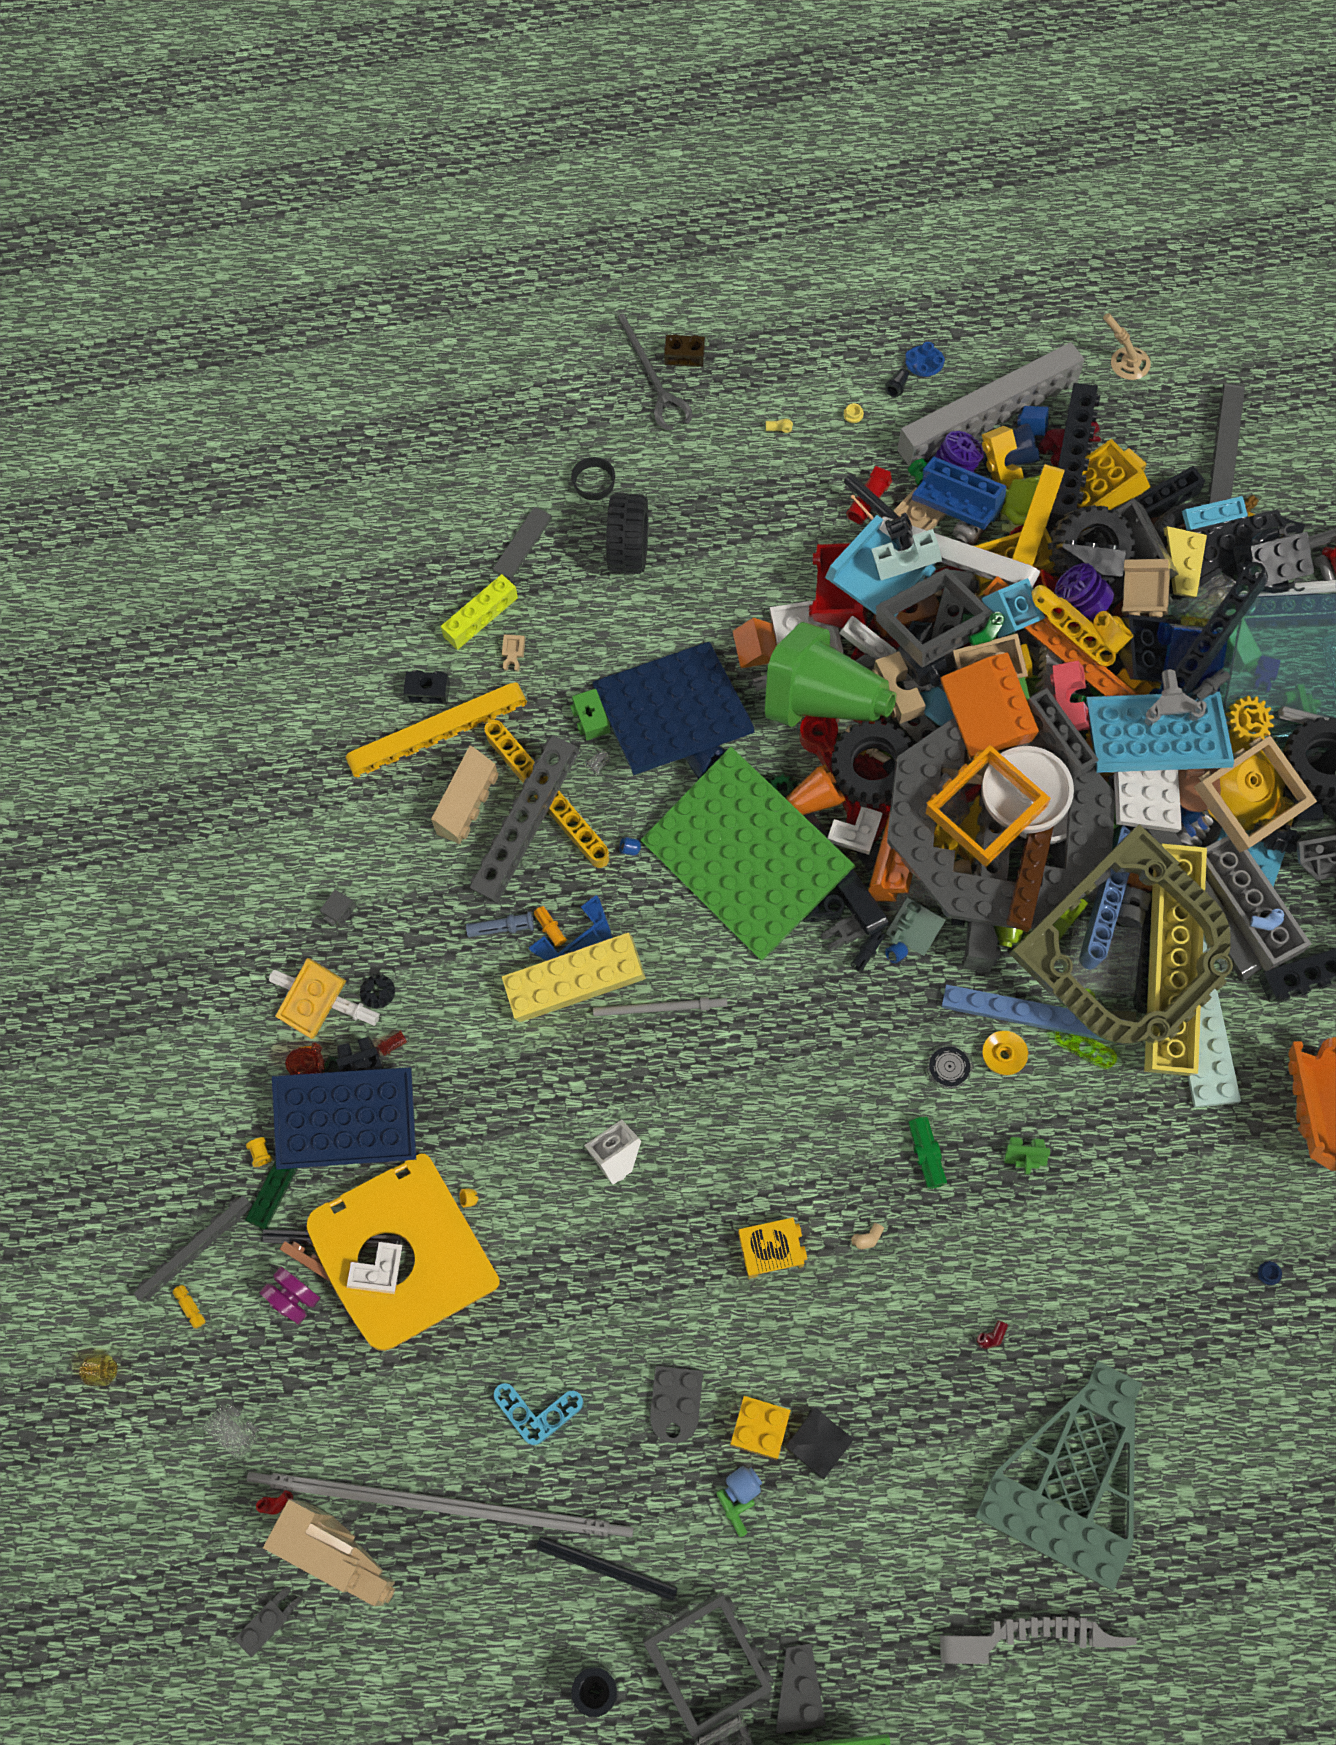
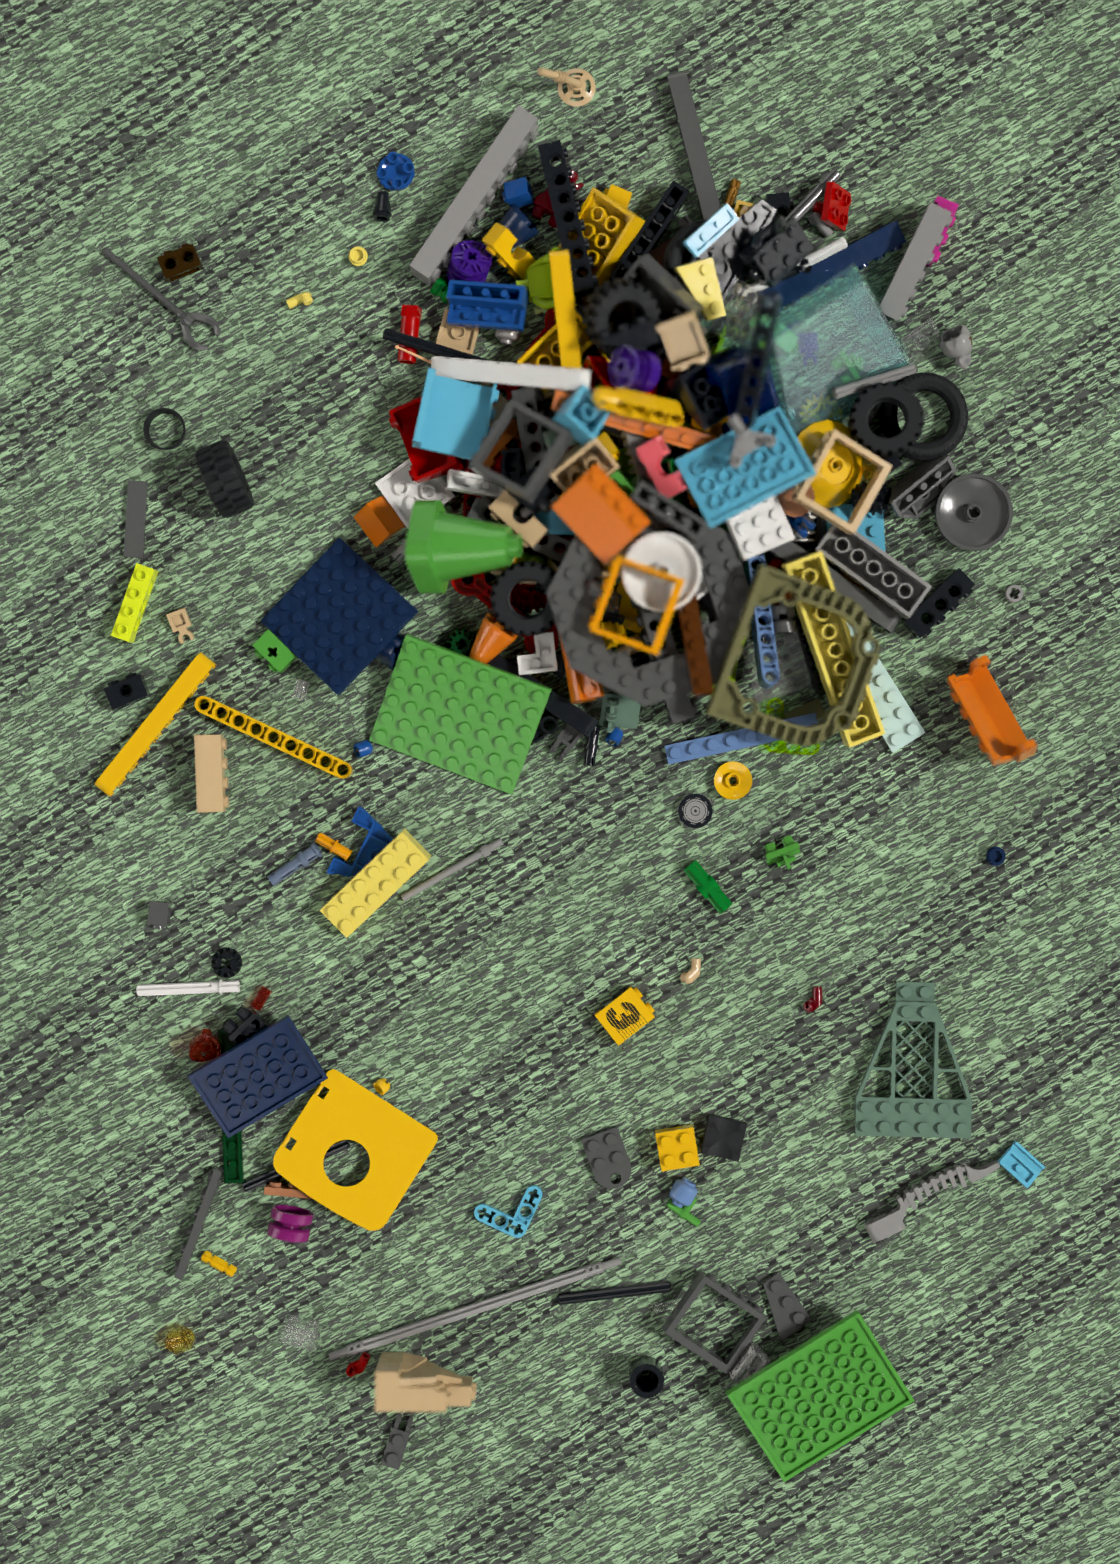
camera: 30 degrees left, 20 degrees up
(259, 1152) = (206, 1129): yellow bush -> none
(310, 998) = (179, 995): yellow tile -> none
(377, 1277) = (351, 1178): white plate -> none
(525, 830) = (276, 705): dark grey brick -> none
(615, 1151) = (473, 999): white slope -> none
(900, 531) = (455, 372): black connector -> none
(922, 553) = (462, 407): light aqua arch -> none
(990, 630) = (572, 448): green arm -> none
(1112, 630) = (674, 397): yellow piece -> none
(1162, 1657) = (1021, 1164): none -> medium azure plate
(1194, 621) = (736, 348): clear yellow tile -> none
(1210, 685) = (769, 407): dark grey pin -> none
(1251, 720) = (807, 423): yellow gear -> none
(1270, 922) = (893, 585): light blue arm -> none

